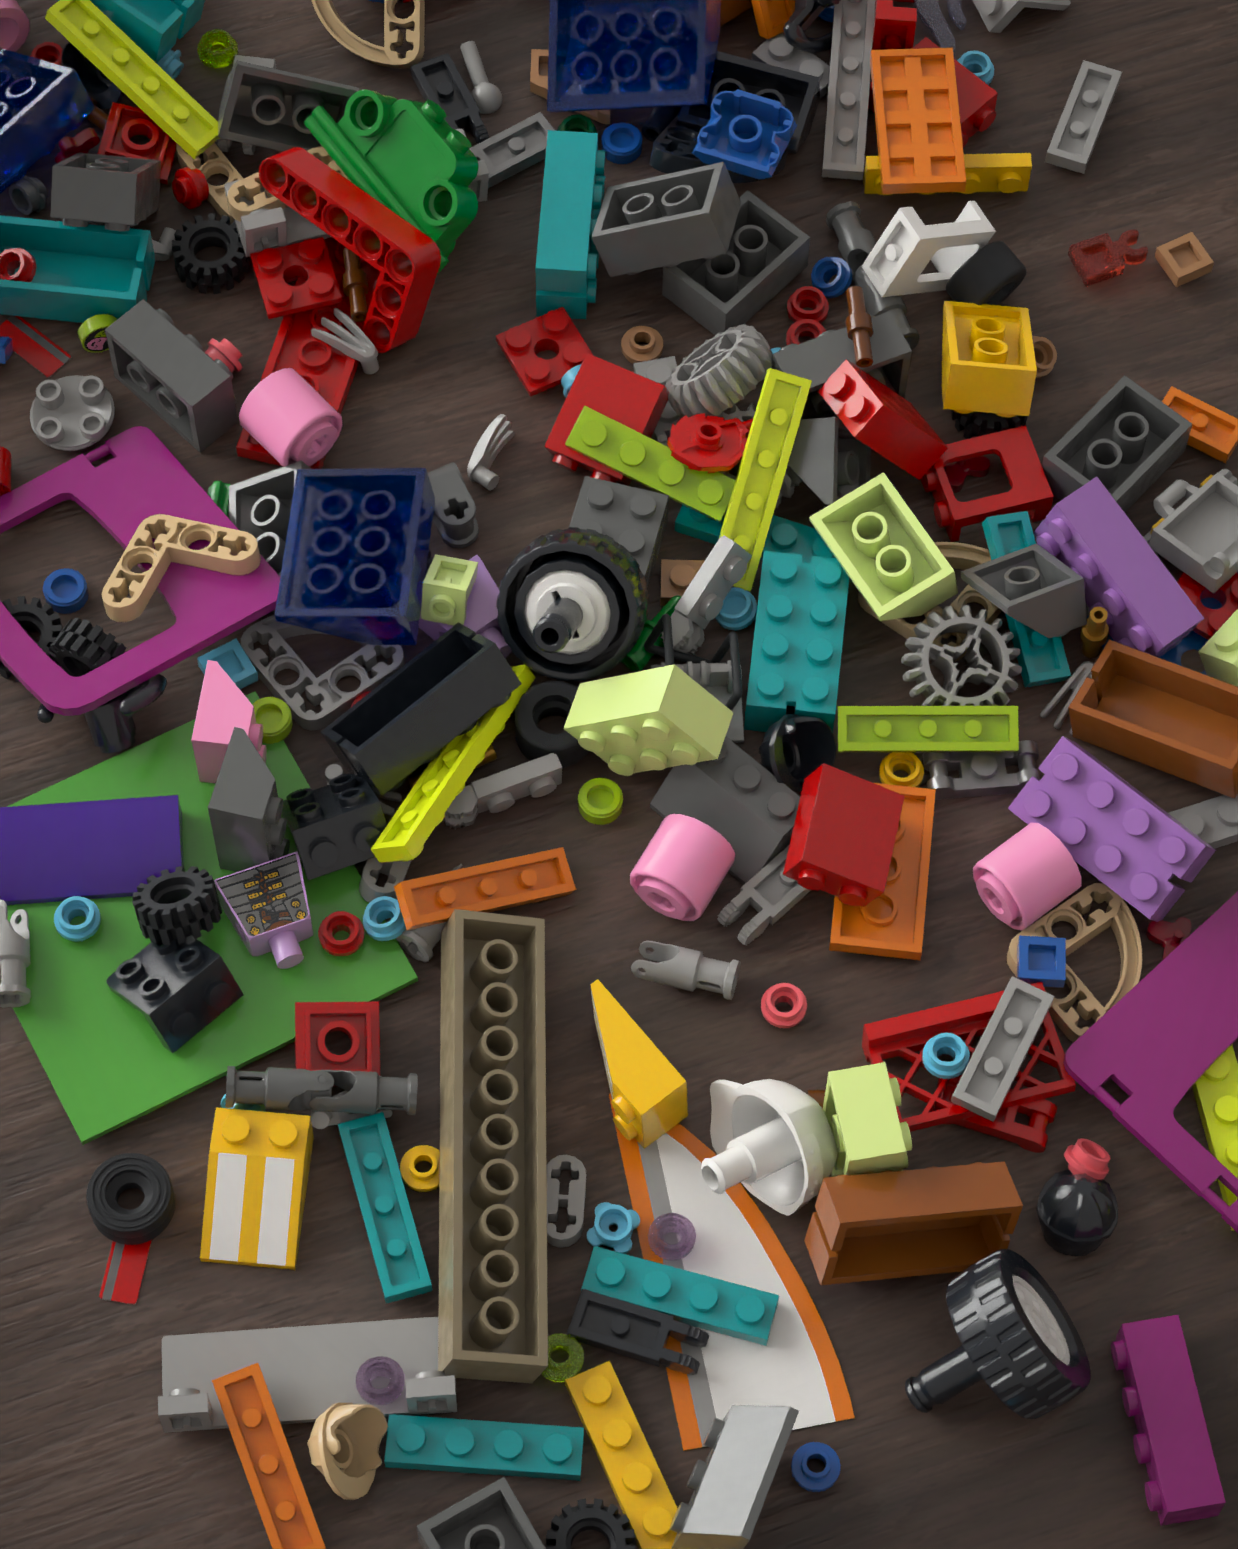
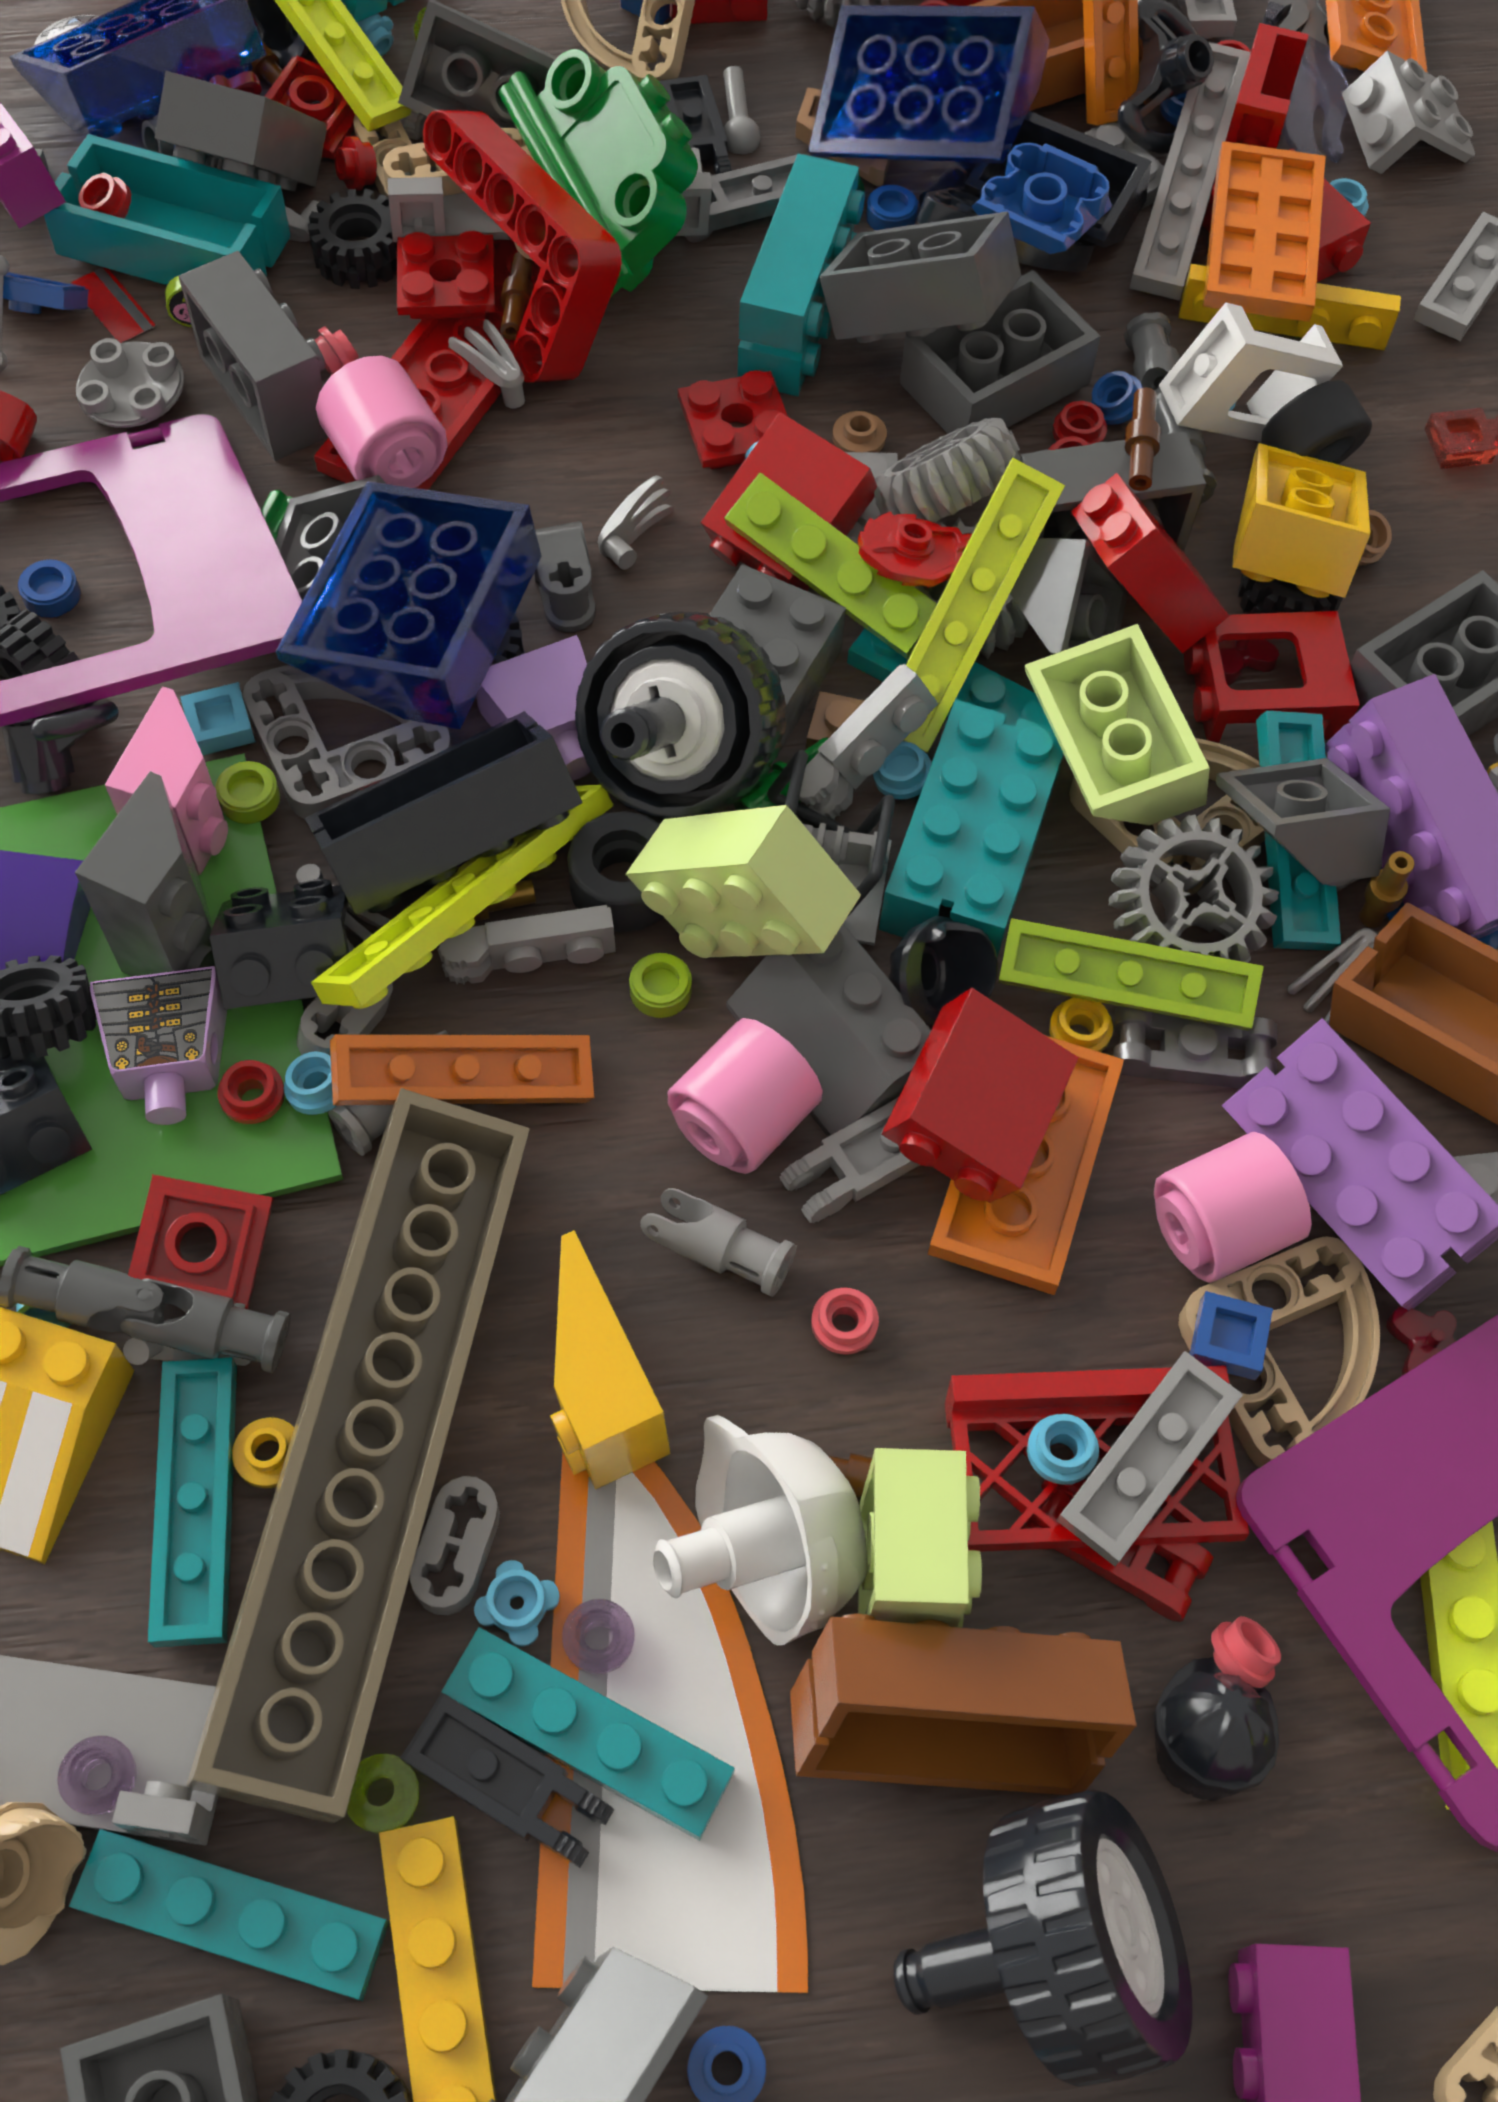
camera: 10 degrees right, 0 degrees up
(228, 552) = (166, 541): tan beam -> none
(447, 589) = (519, 665): yellowish green bracket -> none

